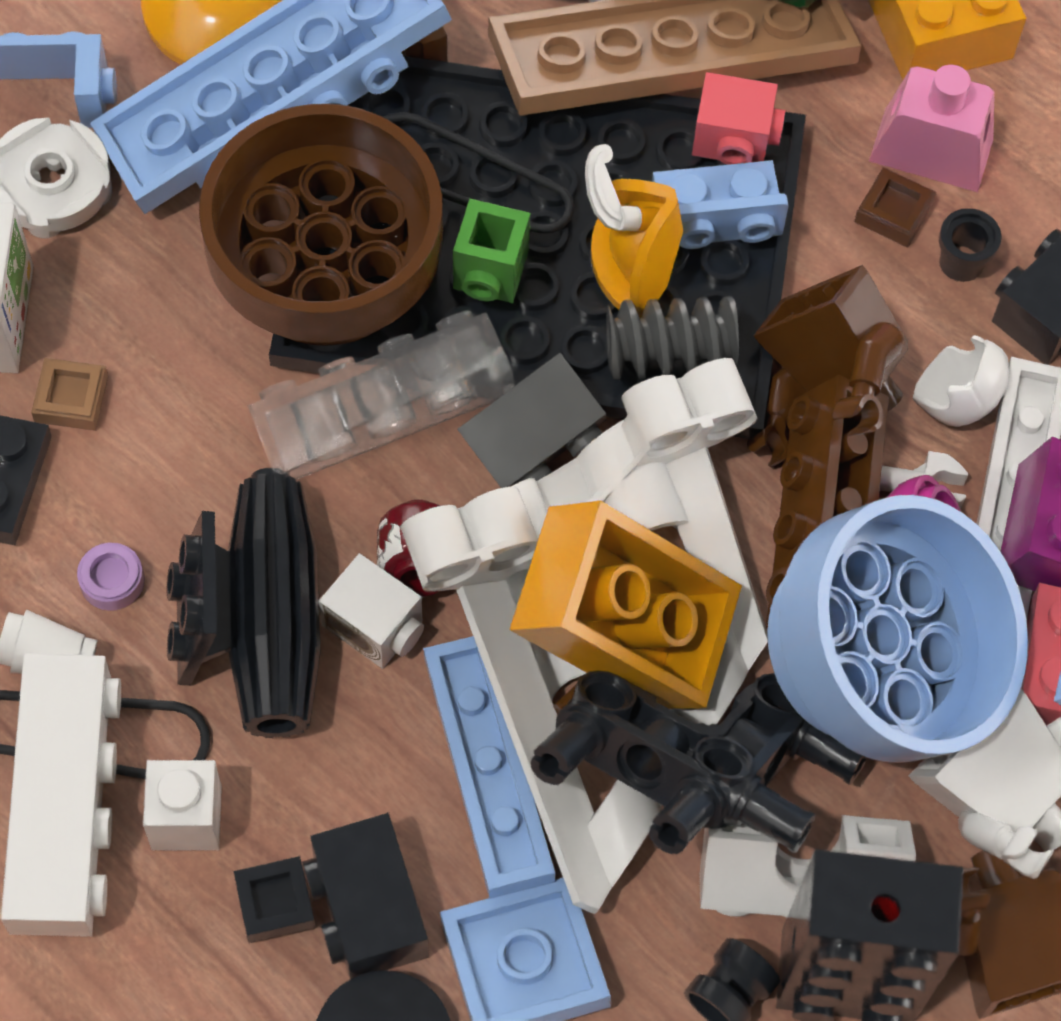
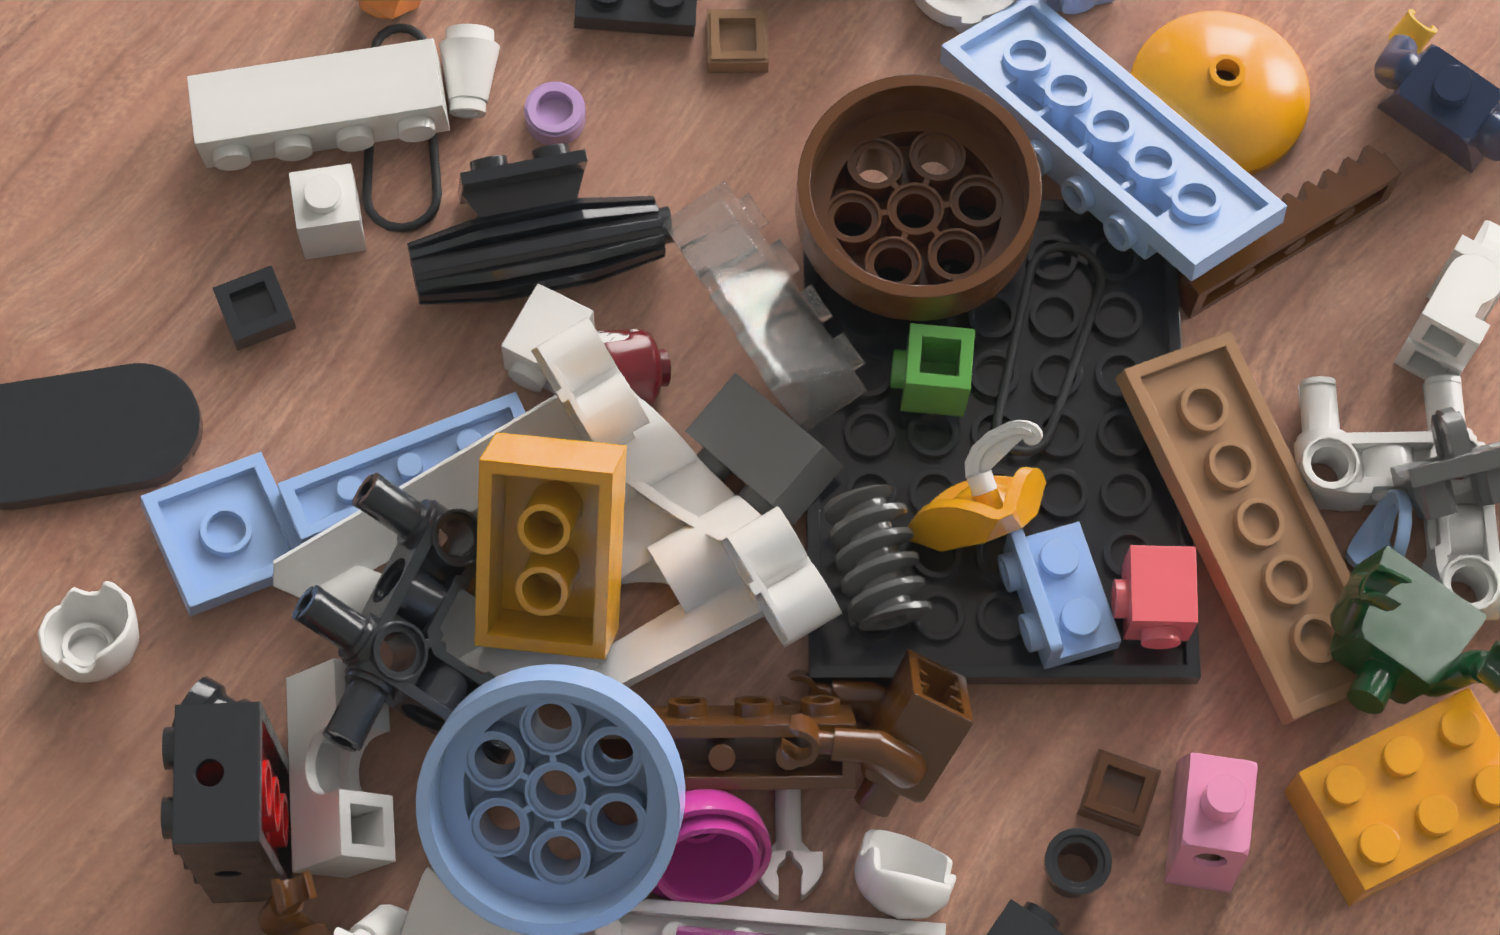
camera: 80 degrees right, 5 degrees up
(368, 897) = (264, 384): black brick -> none

